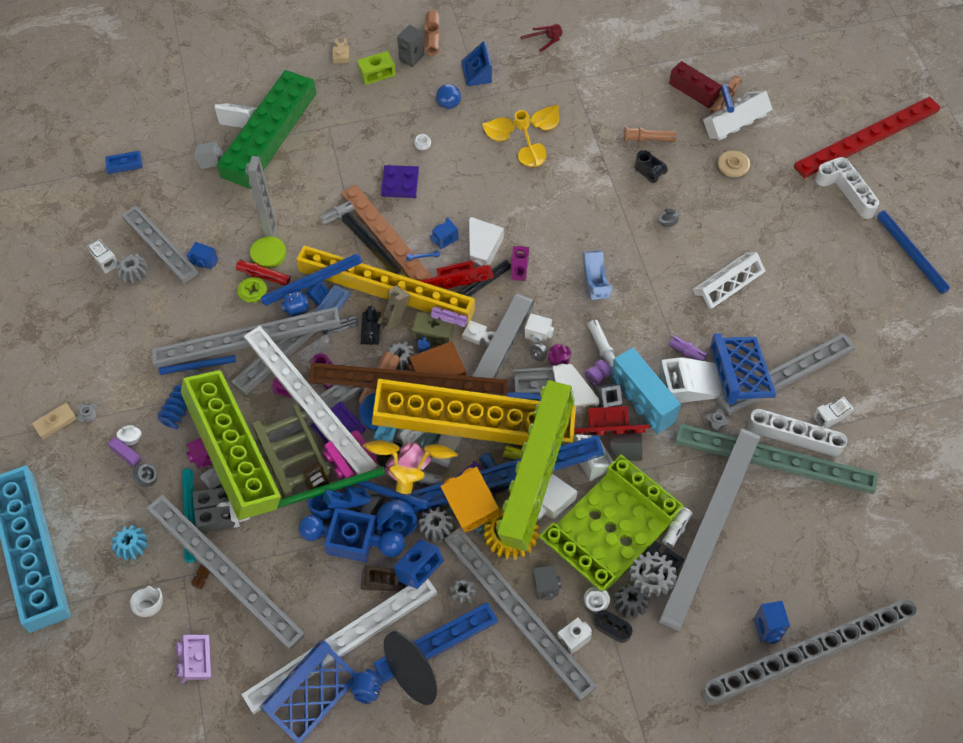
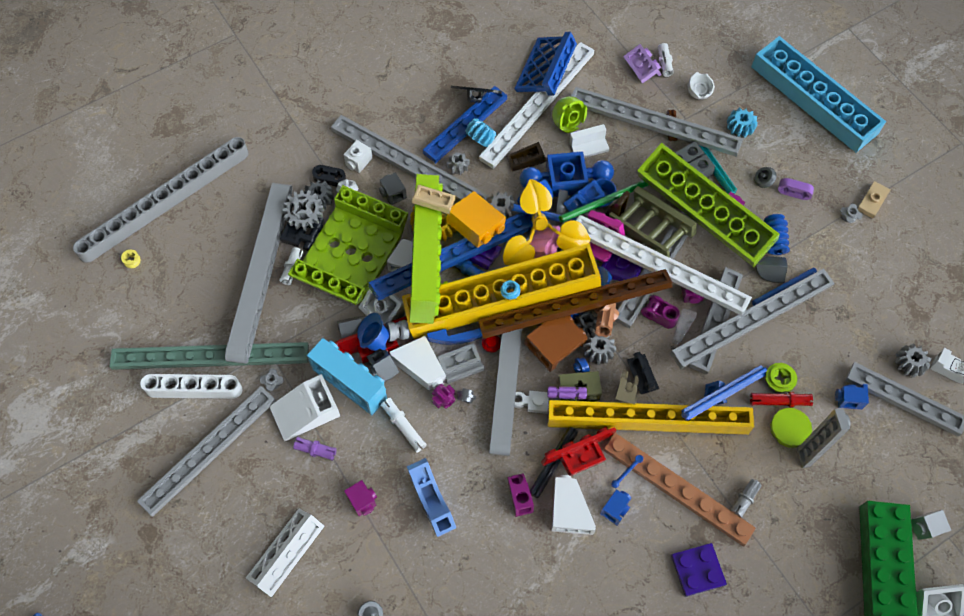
camera: 160 degrees right, 5 degrees up
(129, 435) = (801, 203): white hat -> none
(159, 670) = (666, 64): none -> white pin
(295, 303) = (728, 369): blue head -> none
(306, 575) = (589, 140): none -> white panel
(315, 613) = (569, 113): none -> lime cylinder
(335, 298) = (694, 387): medium blue tile -> none
(351, 321) = (669, 372): black axle -> none
(366, 686) = (505, 78): blue head -> none
(371, 243) = (691, 473): black axle -> none
(418, 564) = (494, 174): blue brick -> none
(425, 614) = (480, 132): none -> medium azure gear
(468, 391) = (510, 285): none -> medium azure plate
(514, 493) = (433, 199): none -> tan plate
(539, 329) = (473, 420): white brick -> none
(586, 417) = (397, 330): none -> light grey wheel
(597, 373) = (400, 390): medium lavender wheel -> none
(612, 416) = (373, 333): none -> blue piece
(656, 297) = (361, 498): none -> magenta brick
(722, 357) = (271, 430): blue fence -> none
(771, 622) = (197, 203): blue brick -> none
(833, 412) = (156, 420): white leg -> none
(852, 585) = (133, 254): none -> light yellow bush

